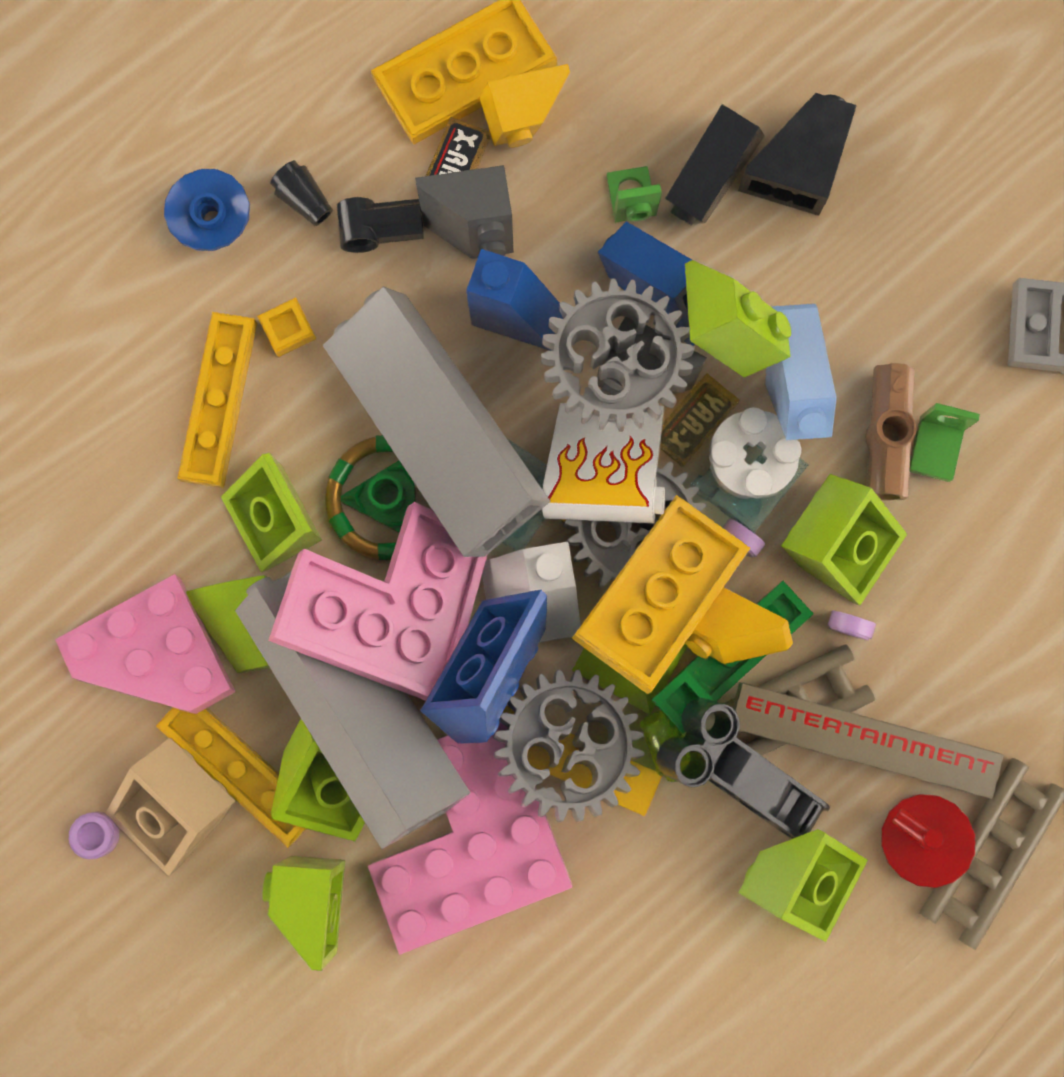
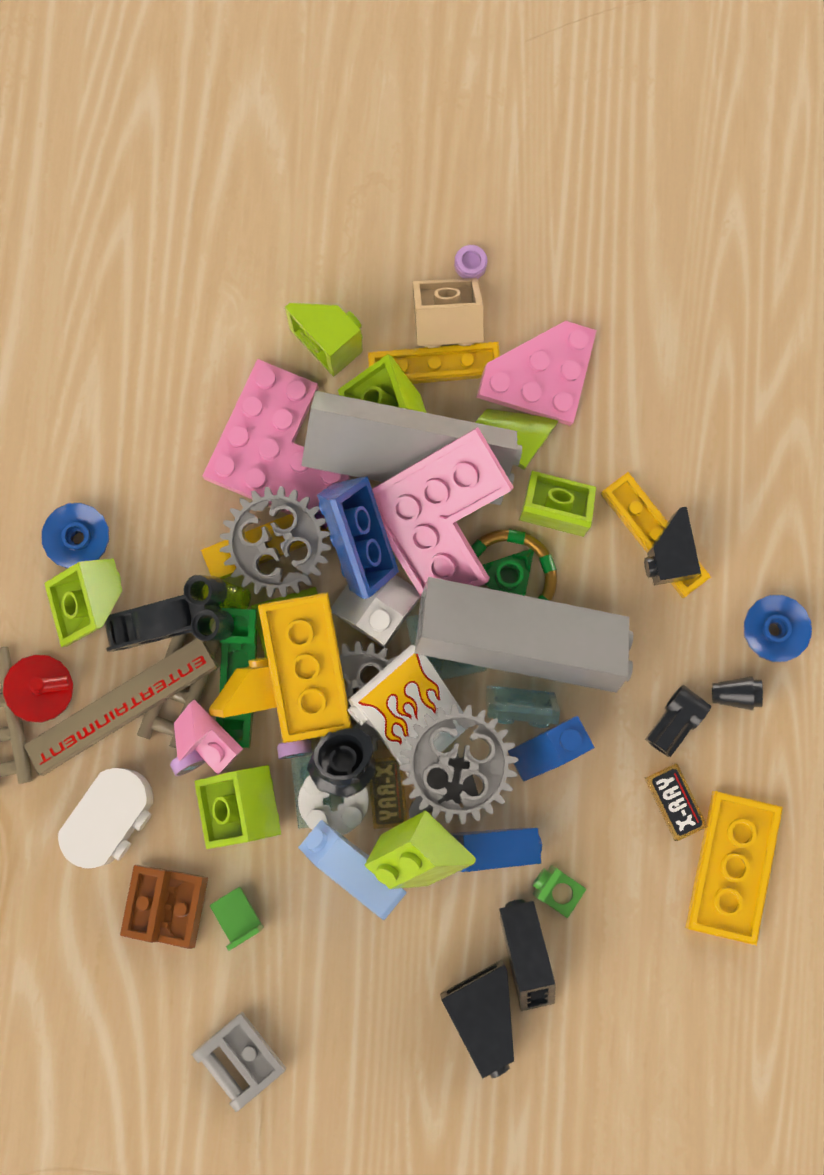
camera: 130 degrees right, 0 degrees up
(218, 361) = (673, 552): none -> black slope
(286, 327) = (663, 611): yellow tile -> none
(469, 209) = (630, 777): dark grey slope -> none
(501, 364) = (512, 704): none -> clear light blue plate
(521, 103) = (673, 875): yellow slope -> none
(715, 473) = (343, 762): none -> black hat
(766, 976) = (65, 524): none -> blue dish
(817, 638) = (200, 732): none -> bright pink slope
(893, 406) = (287, 914): medium nougat piece -> none
(976, 648) = (106, 818): none -> white brick
(994, 521) = (164, 906): none -> dark orange slope

